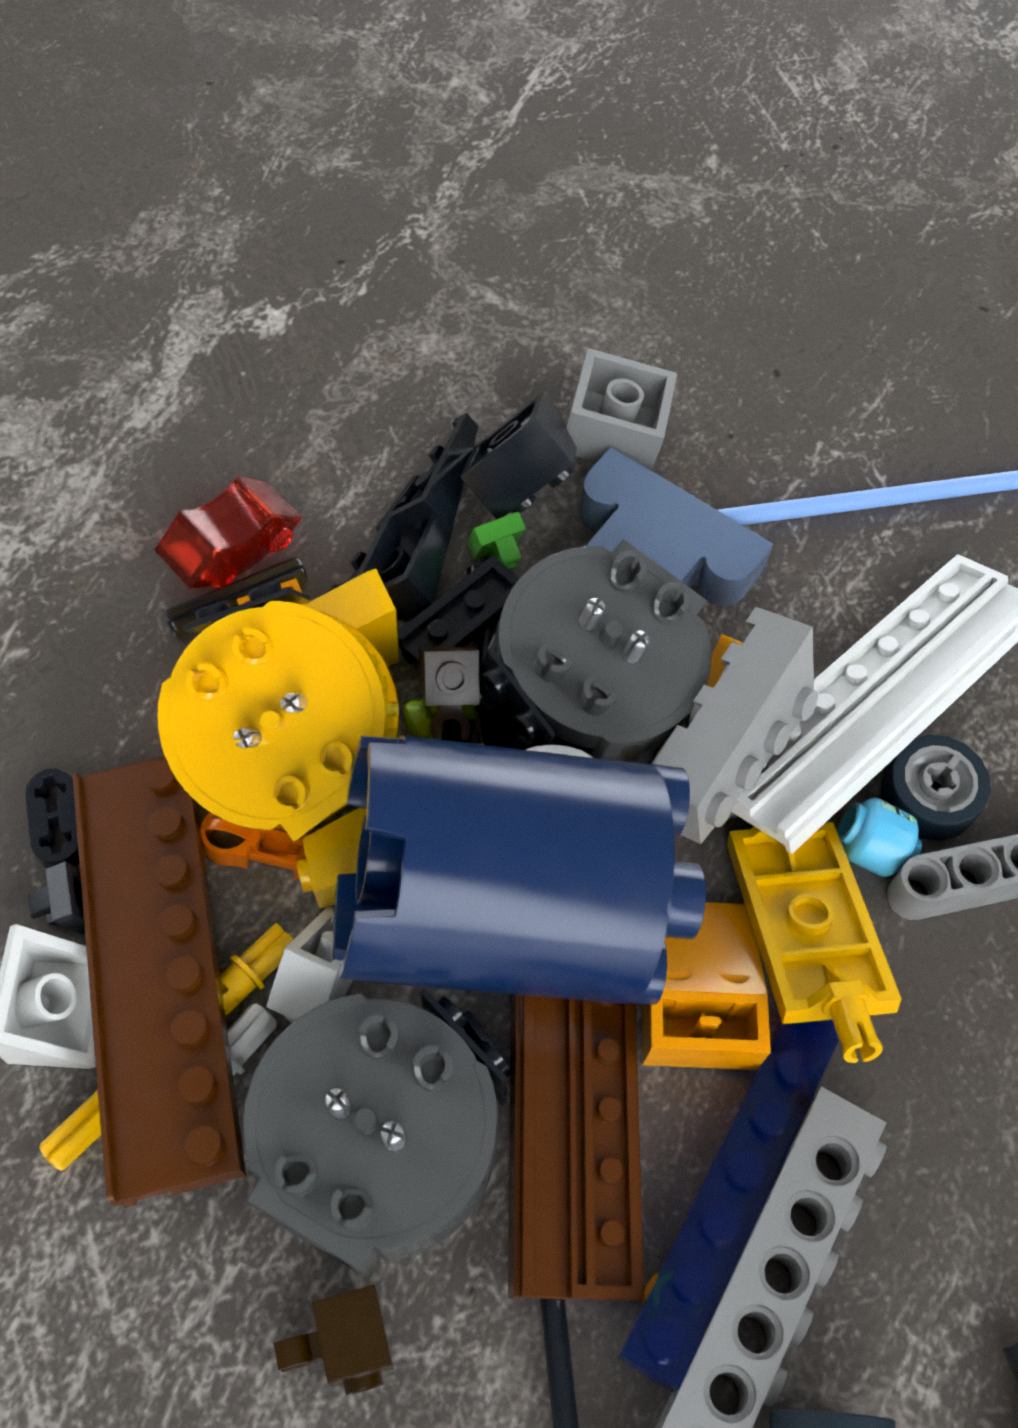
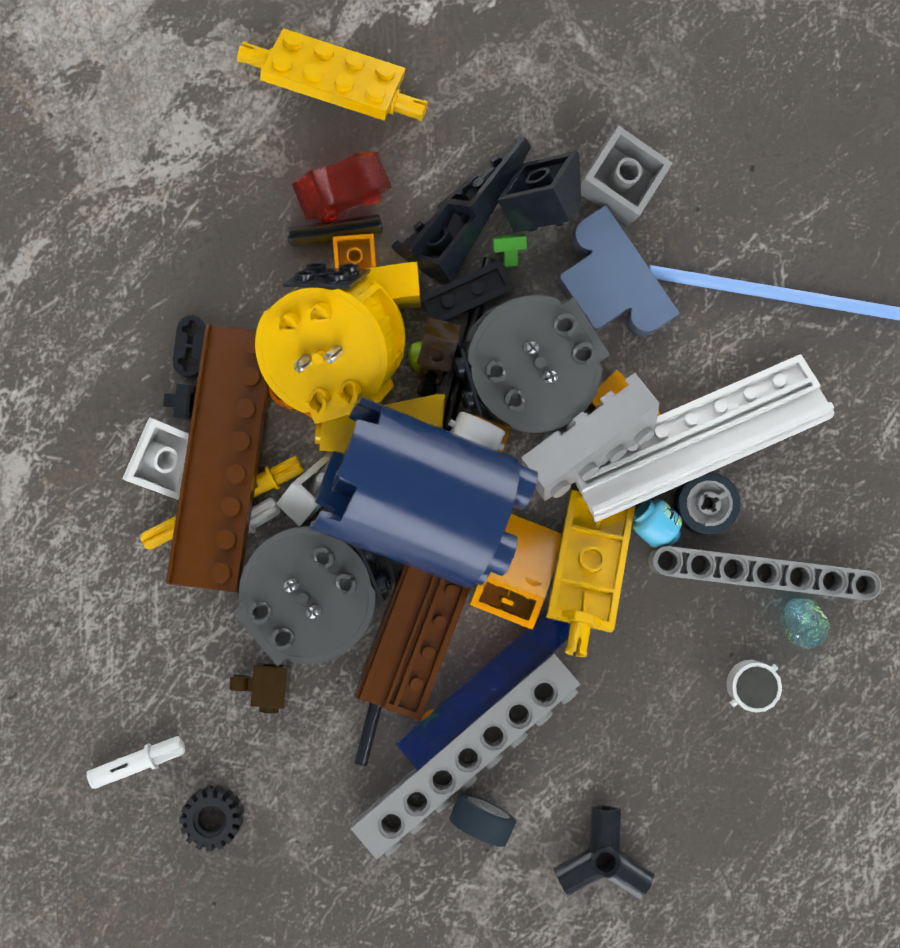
camera: 20 degrees right, 25 degrees up
(174, 408) = (333, 75): none -> yellow plate

